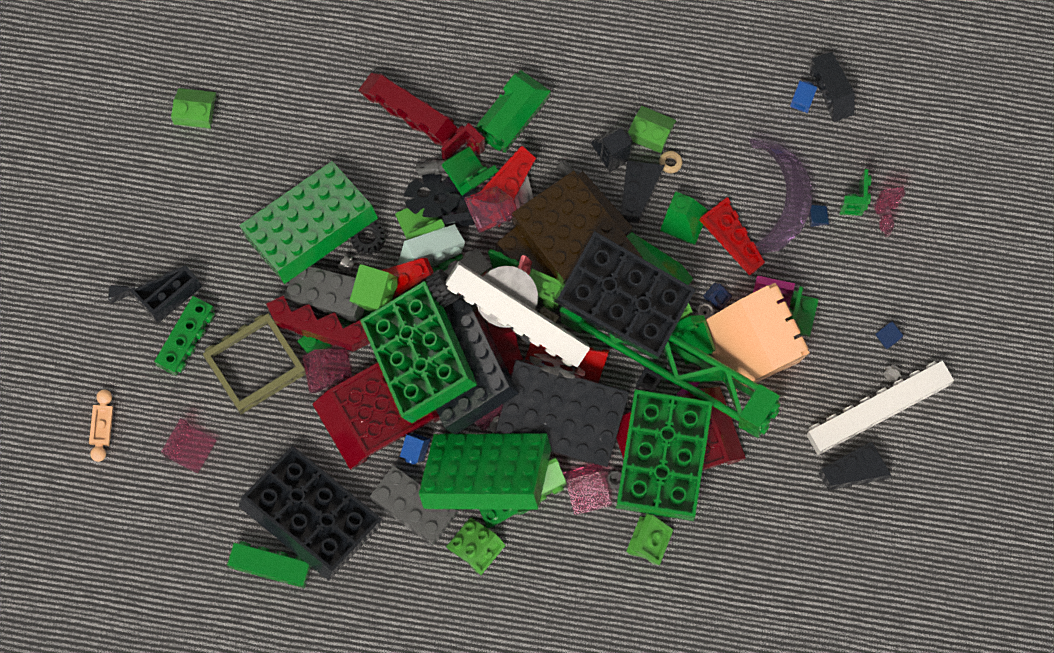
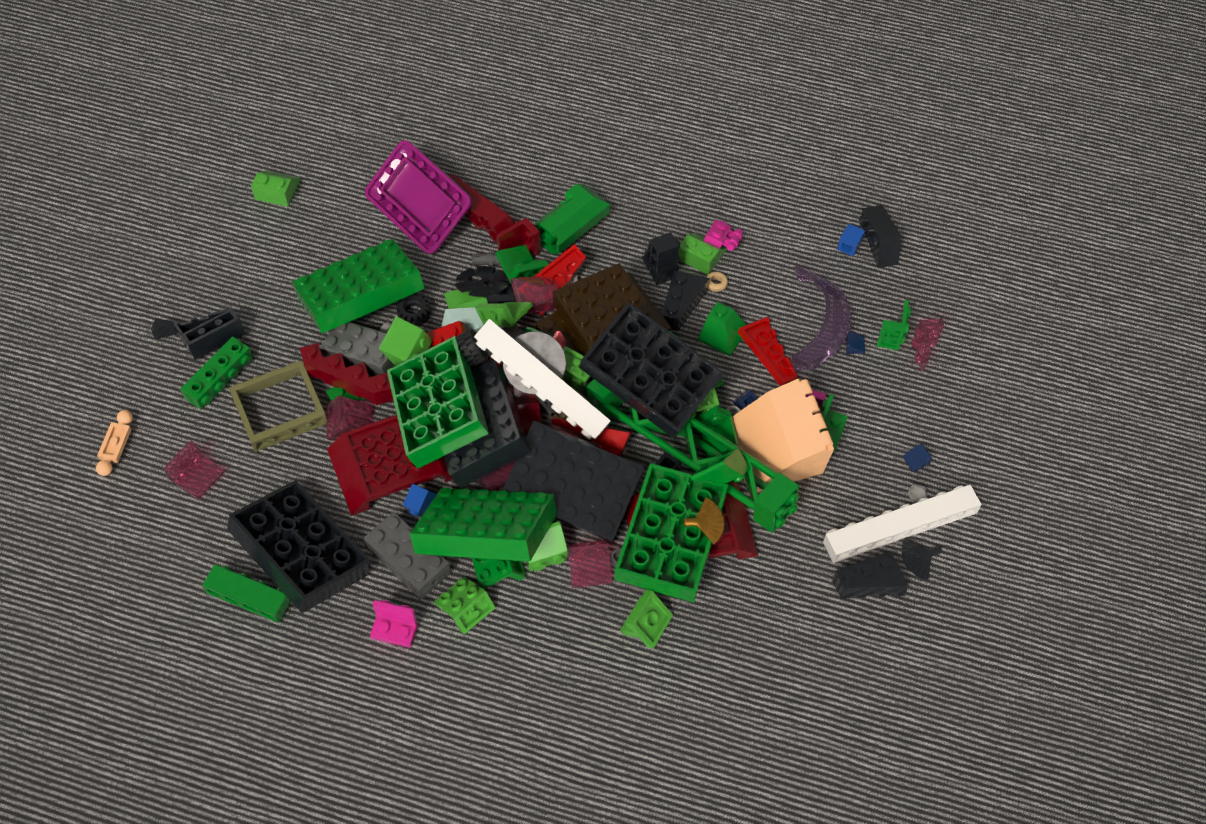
camera: 10 degrees right, 15 degrees down
(349, 108) = (418, 197): none -> magenta wedge
(414, 577) = (394, 623): none -> dark pink bracket
(466, 240) = (503, 314): none -> bright green bracket
(666, 106) = (720, 235): none -> dark pink plate
(698, 442) = (708, 520): none -> pearl gold hand
(704, 386) = (723, 469): none -> green slope
(898, 439) = (918, 557): none -> black hand

